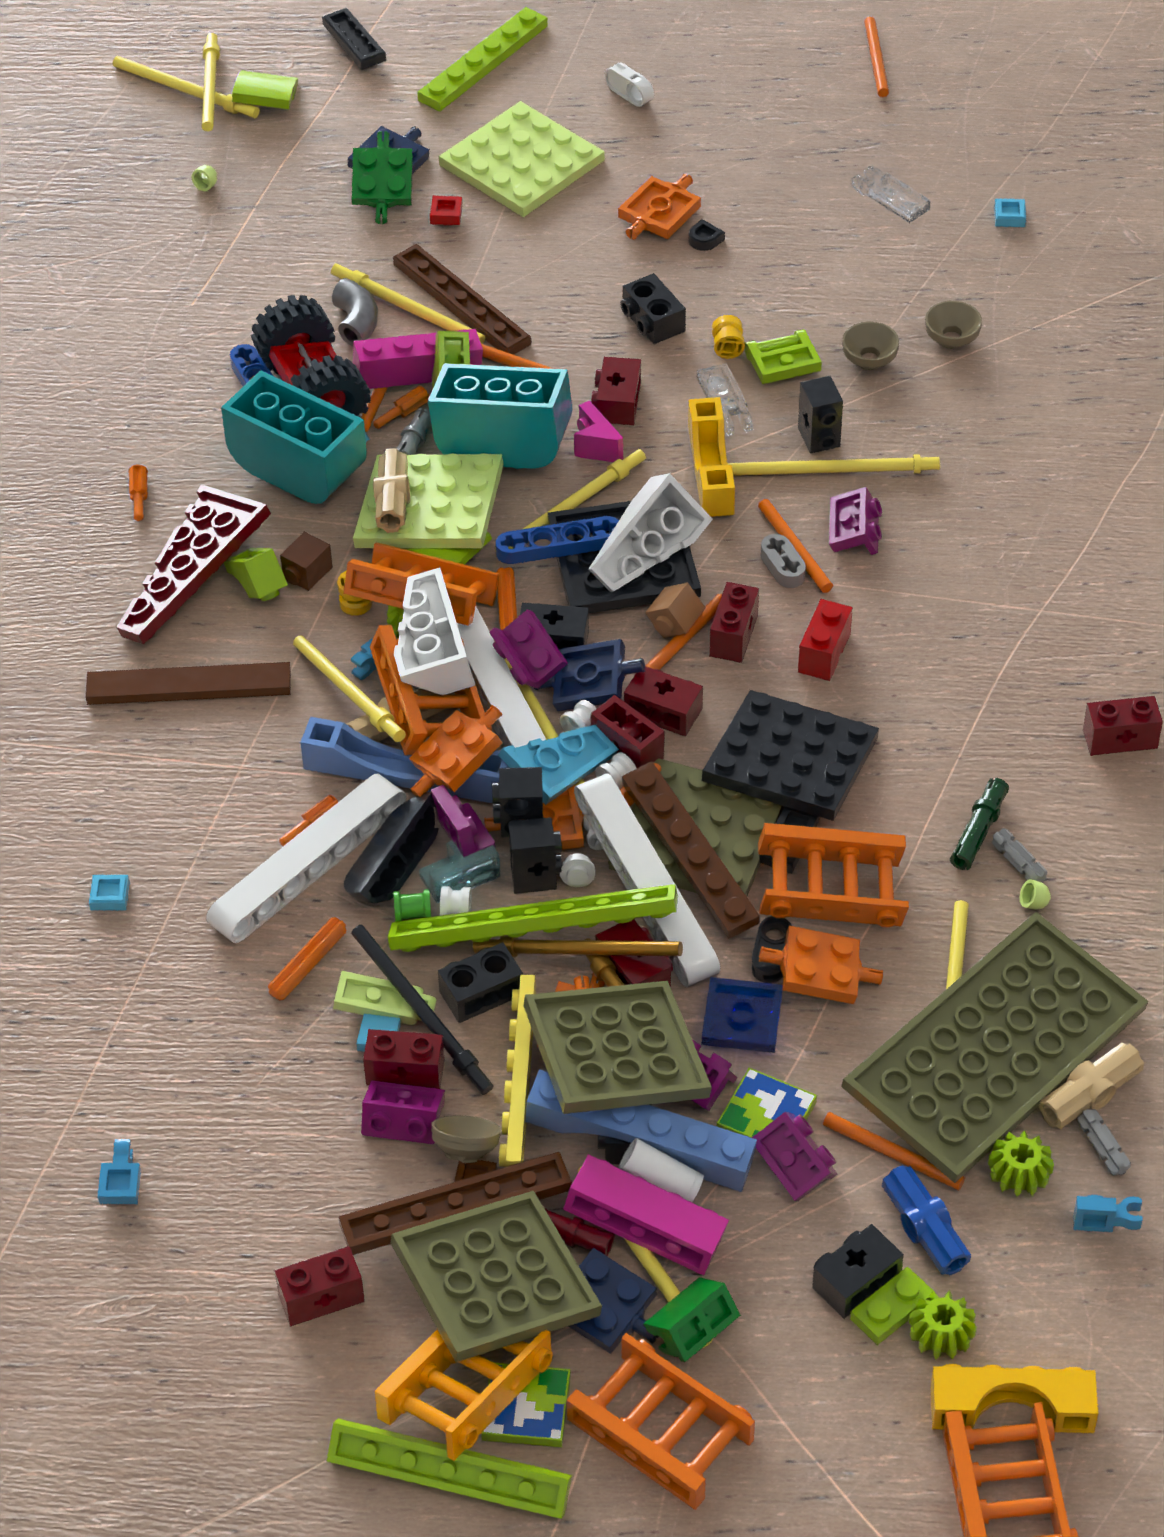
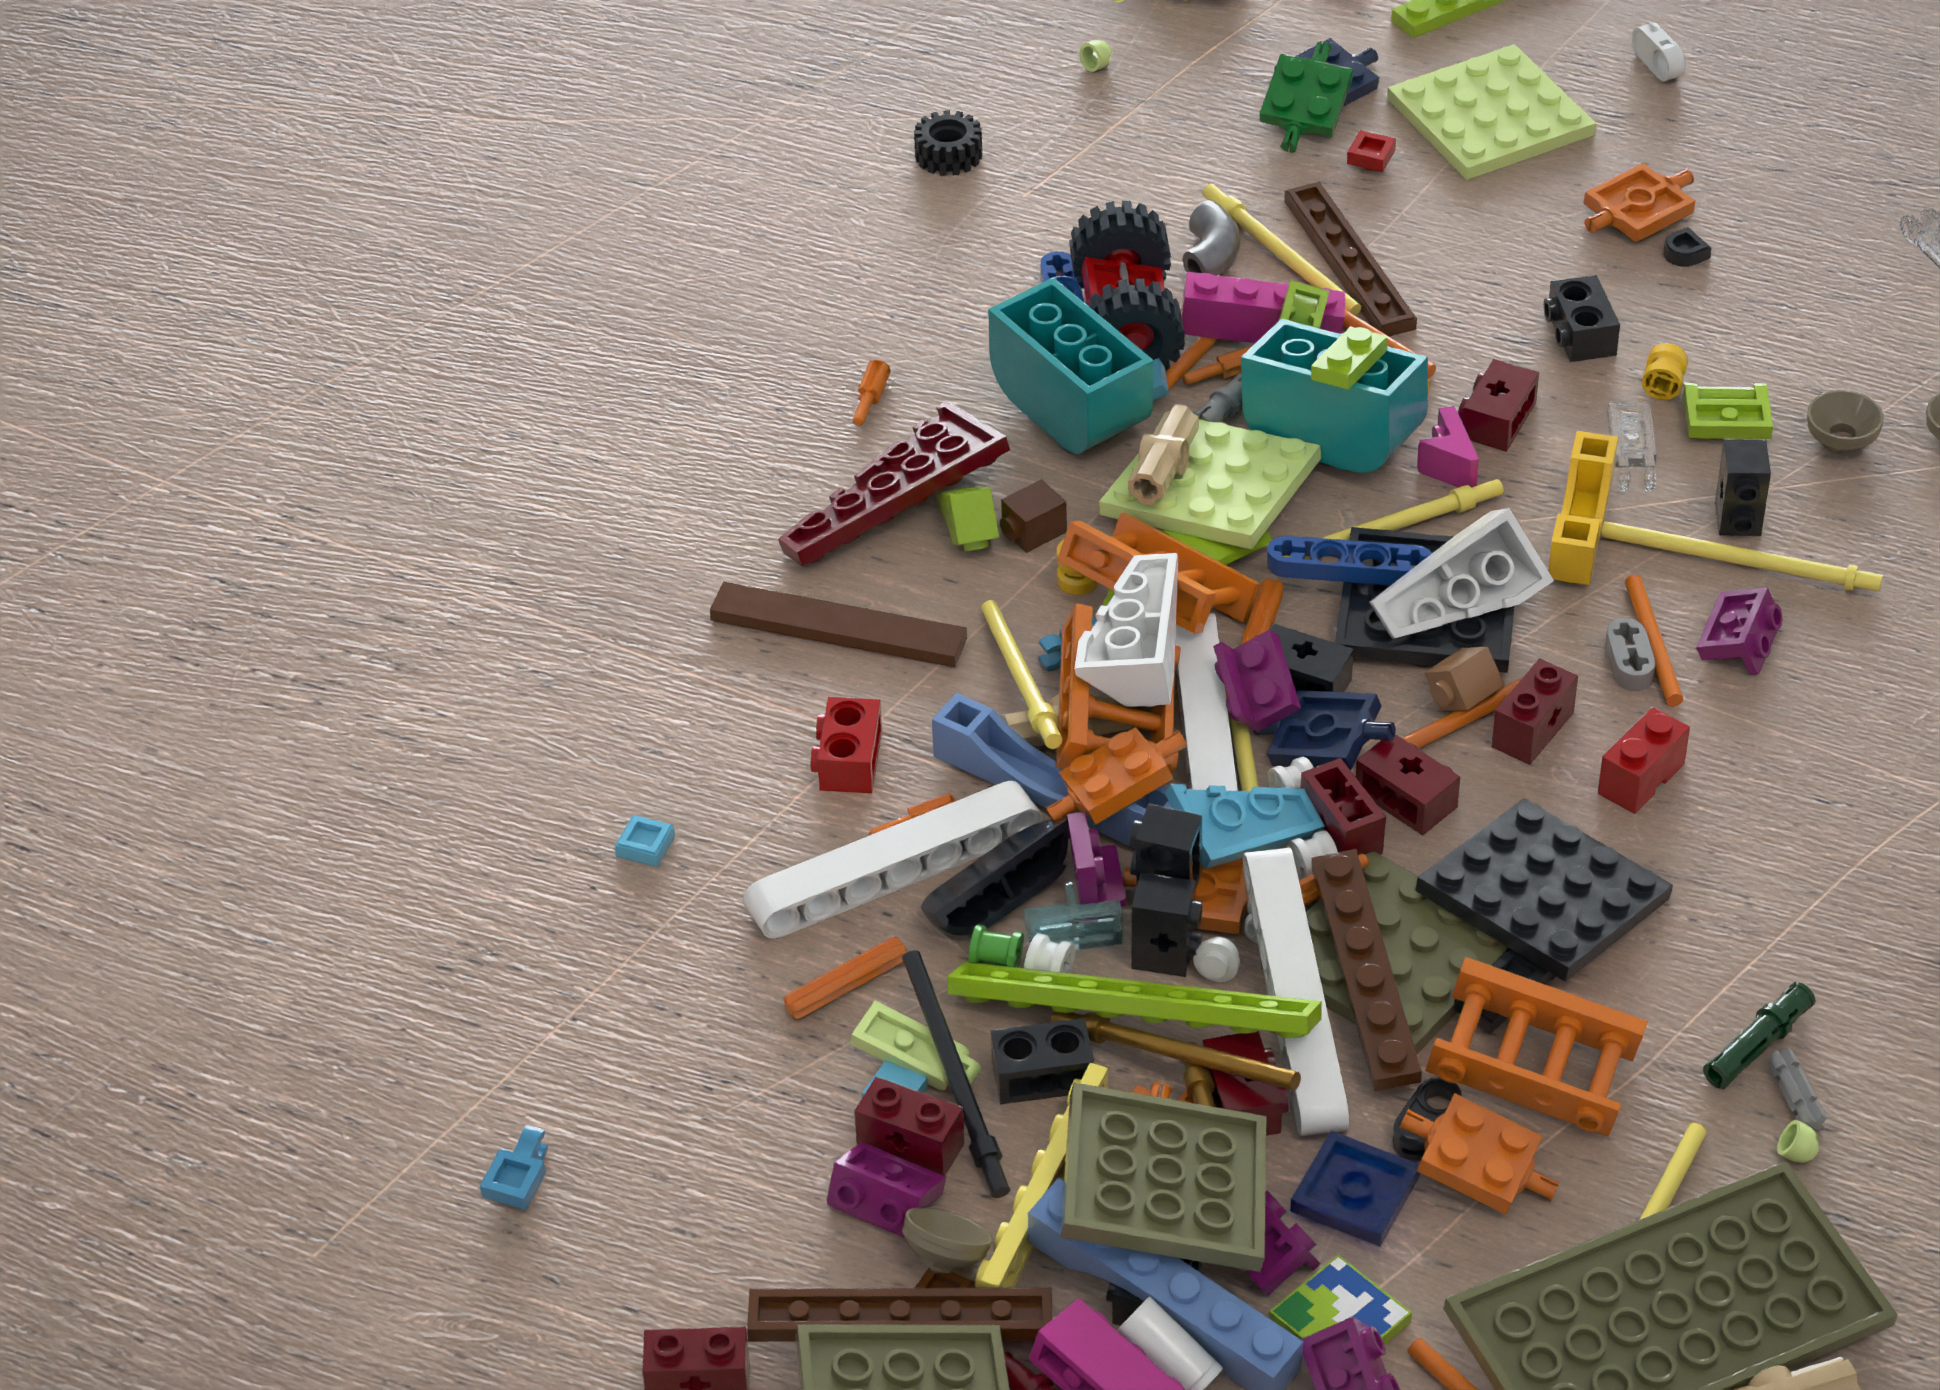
camera: 20 degrees right, 5 degrees down
(116, 263) = (948, 143): none -> black tyre
(238, 777) = (848, 744): none -> red brick
(511, 384) = (1349, 357): none -> lime plate

